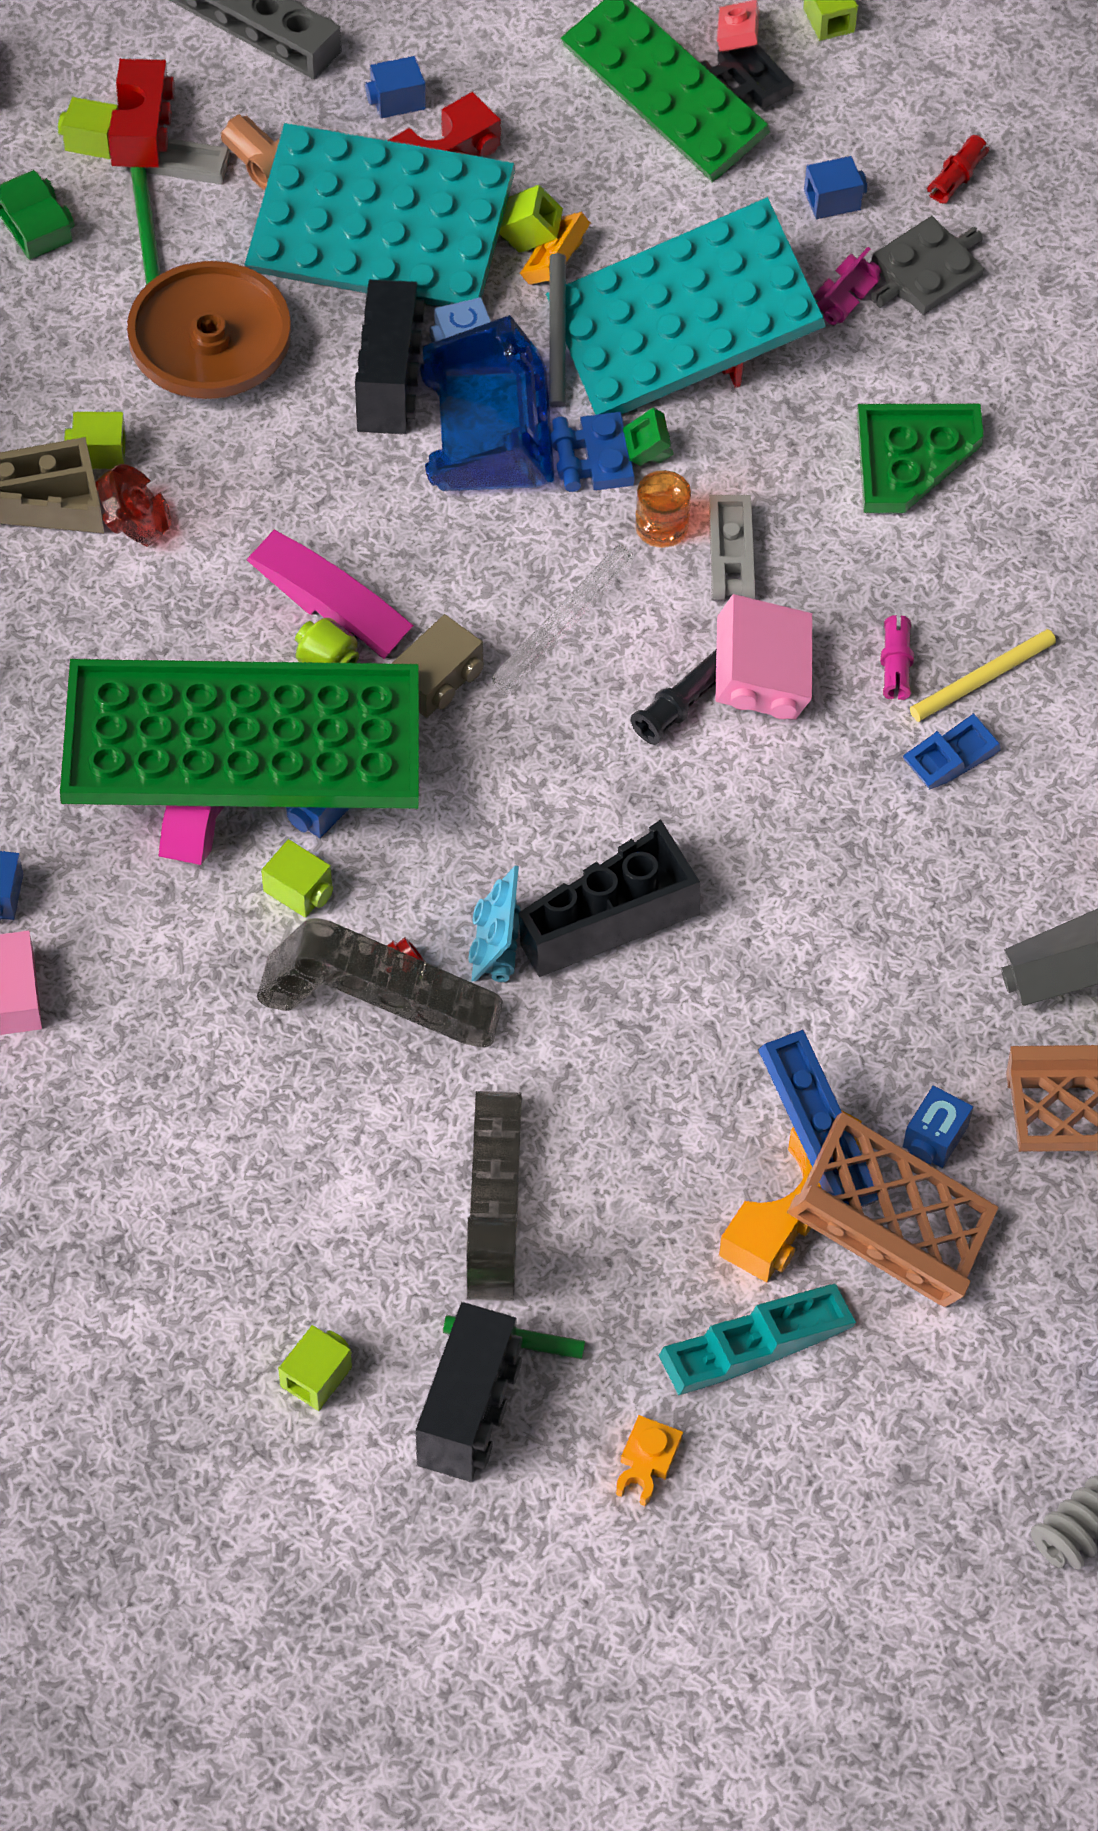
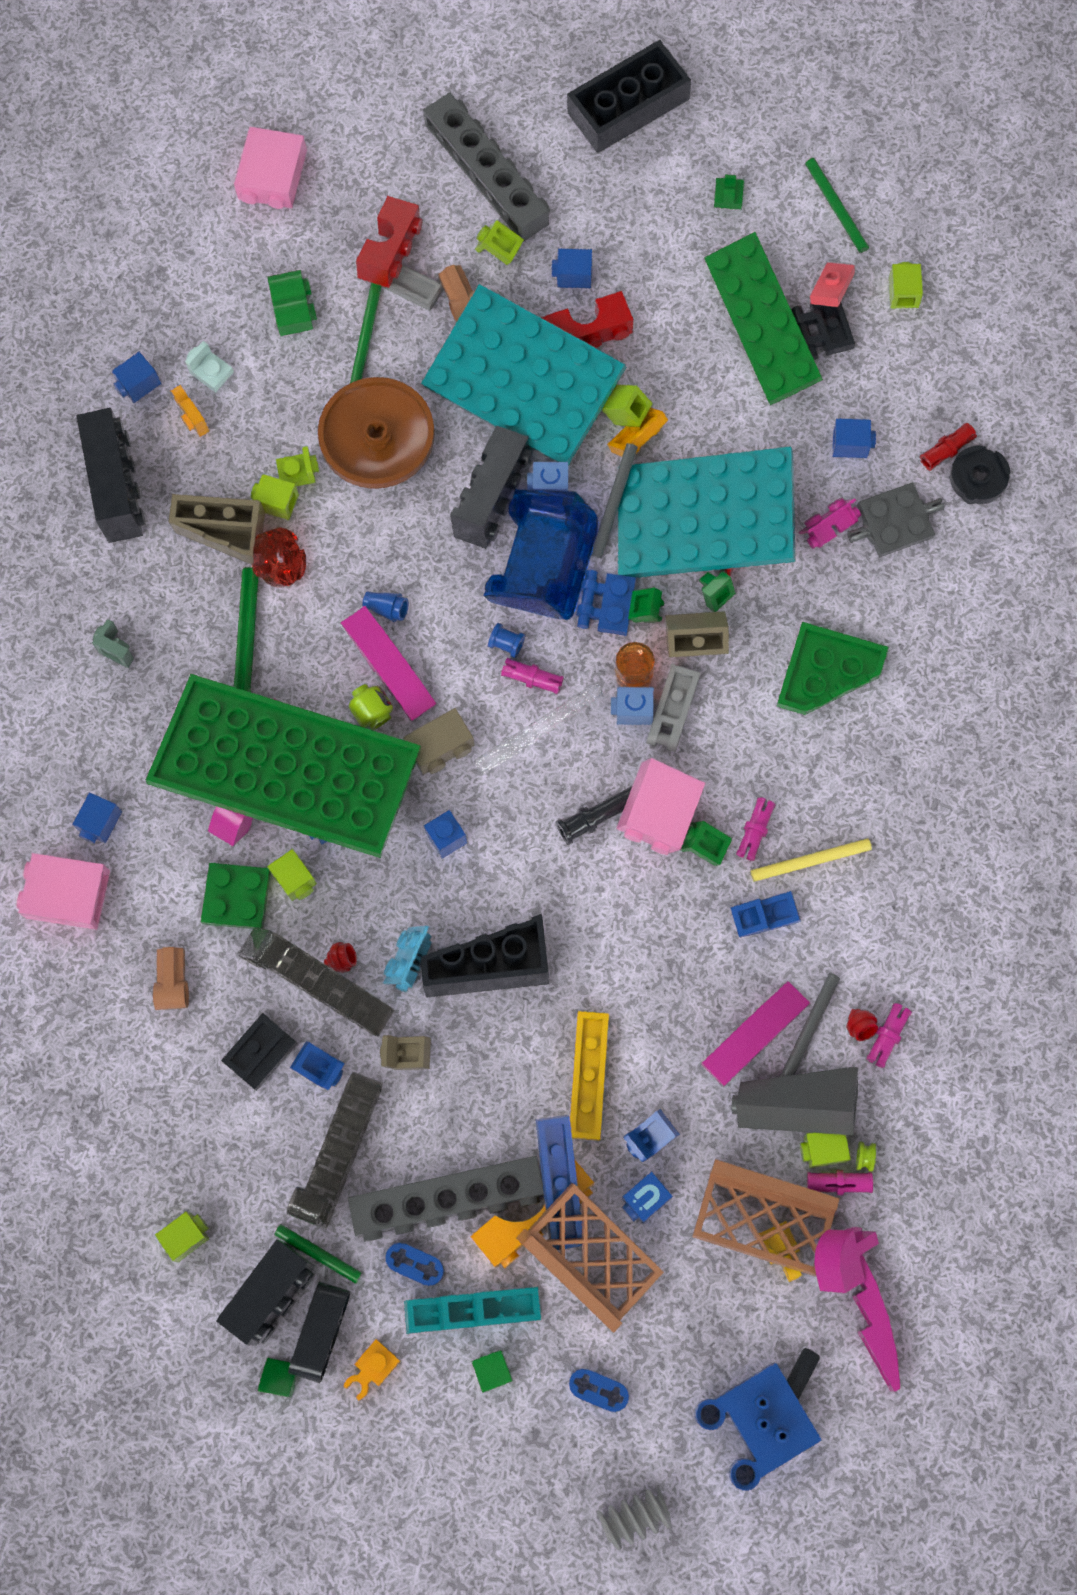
camera: 25 degrees right, 15 degrees up
(86, 127) = (348, 240): lime brick -> none
(113, 596) = (246, 630): none -> green axle
(122, 396) = (298, 468): none -> lime bracket
(177, 1061) = (171, 989): none -> nougat piece
(224, 930) = (235, 896): none -> green plate
(285, 80) = (499, 241): none -> lime bracket
(304, 526) = (388, 605): none -> blue cone
(334, 1107) = (259, 1051): none -> black plate
(424, 1100) = (318, 1066): none -> blue bracket
(478, 526) = (506, 640): none -> blue bush
(489, 770) = (445, 834): none -> blue brick
(520, 1511) = (276, 1378): none -> green slope
(529, 560) = (532, 676): none -> dark pink pin
(540, 1048) = (405, 1052): none -> dark tan bracket
(557, 1428) = (319, 1332): none -> black beam
(655, 1307) = (411, 1271): none -> blue beam
(679, 556) = (633, 705): none -> medium blue brick
(729, 450) = (697, 634): none -> dark tan brick
(733, 397) = (717, 590): none -> green tile
(757, 1143) = (365, 1206): none -> dark grey brick
(797, 994) = (589, 1075): none -> yellow plate
(816, 1405) = (492, 1371): none -> green slope
(840, 688) = (706, 842): none -> green bracket
(913, 1051) = (650, 1136): none -> bracket
(970, 1385) = (594, 1397): none -> blue beam
(998, 891) = (755, 1034): none -> dark pink slope
(1007, 207) = (984, 460): none -> black plate
(1065, 860) = (810, 1025): none -> dark grey bar

